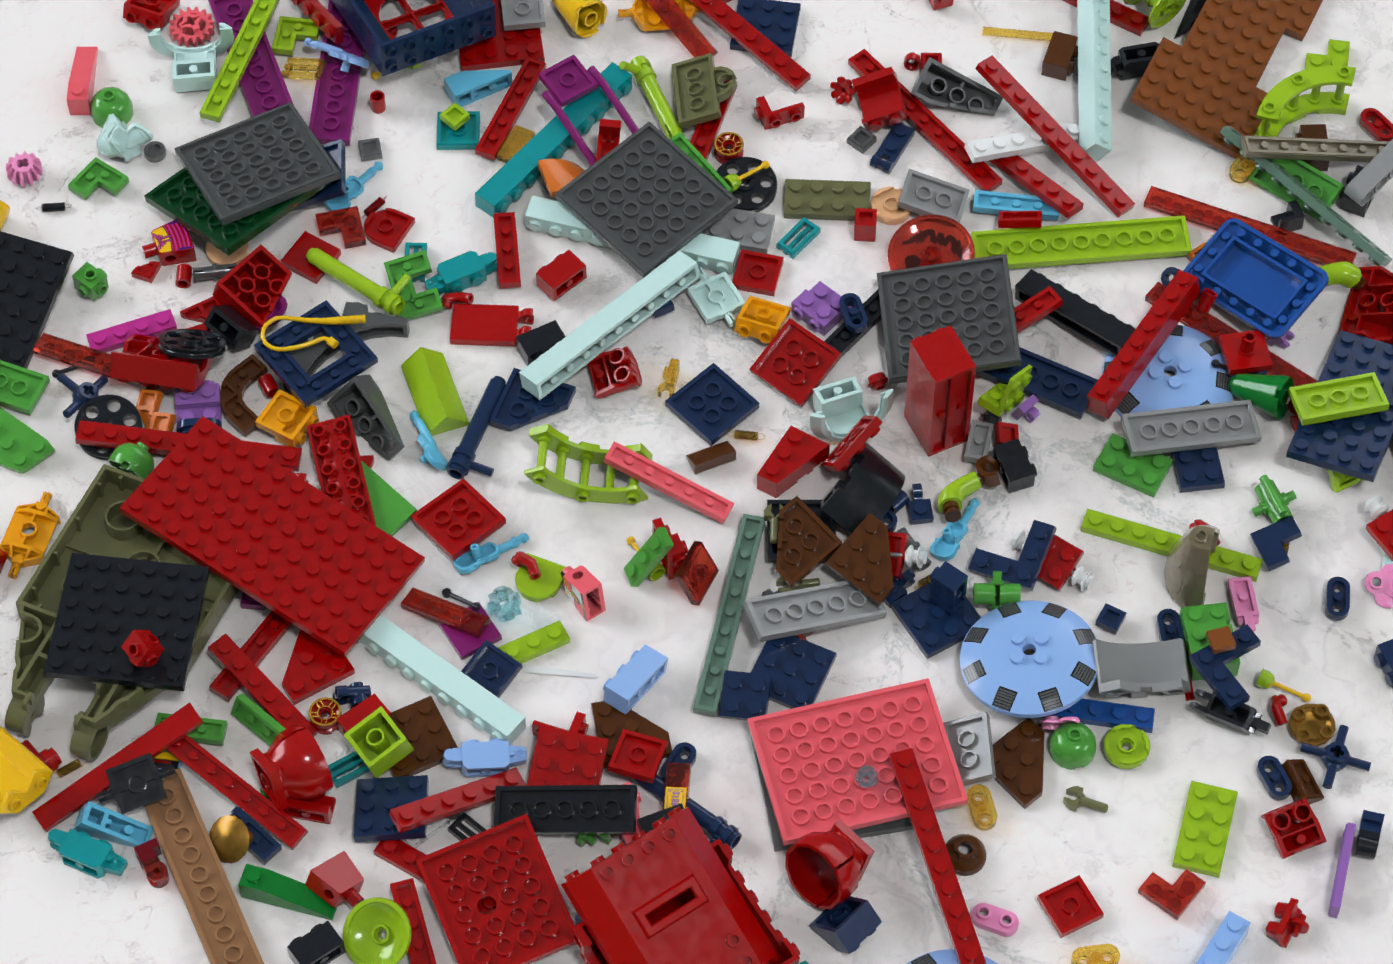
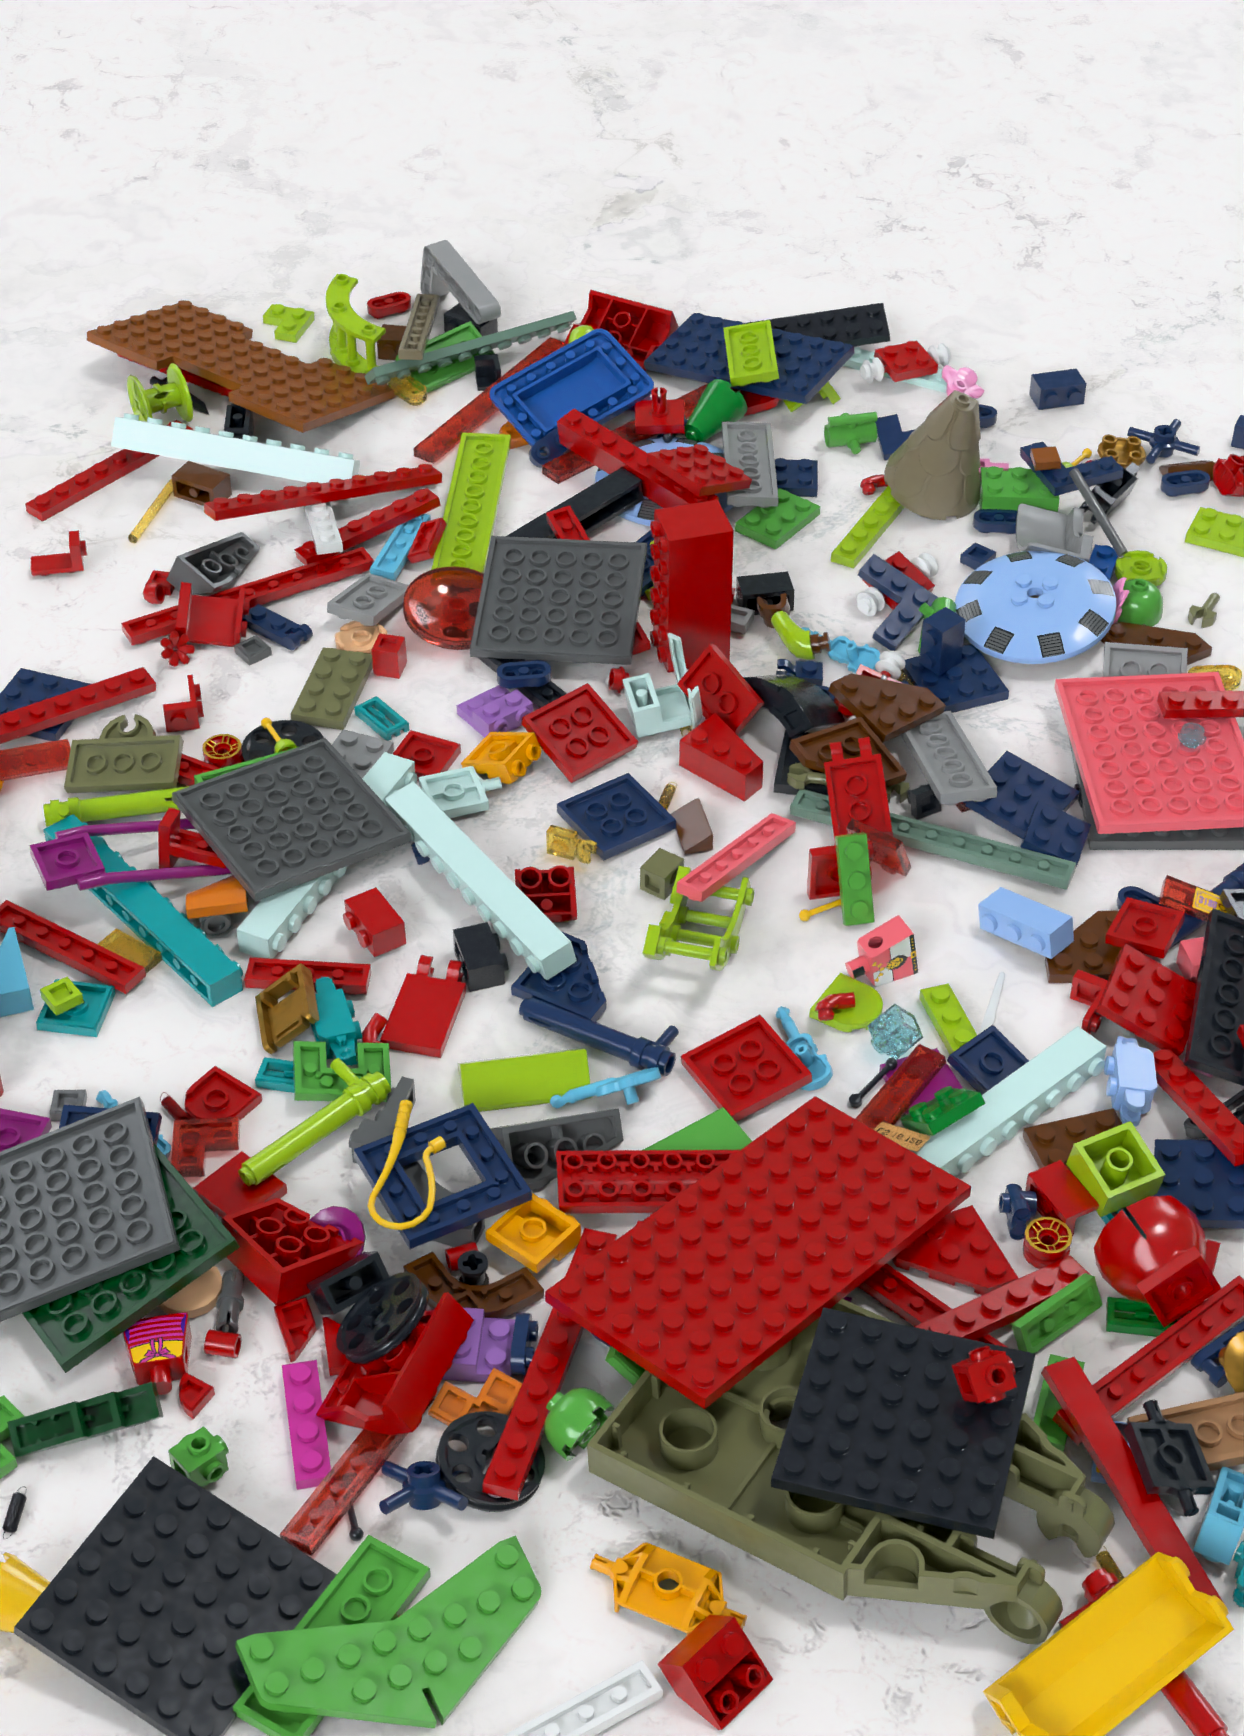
camera: 80 degrees left, 15 degrees down
(116, 221) = (85, 1419): none -> dark green slope
(251, 394) = (473, 1268): none -> black bush
(400, 614) = (904, 1137): none -> clear orange sticker
(427, 637) = (942, 1111): none -> green plate
(464, 242) = (291, 1016): none -> pearl gold container
(653, 439) = (659, 873): none -> olive brick
(753, 549) = (857, 789): none -> red tile
(1135, 382) = (699, 470): none -> red plate
(1174, 696) = (1098, 512): none -> dark grey bar

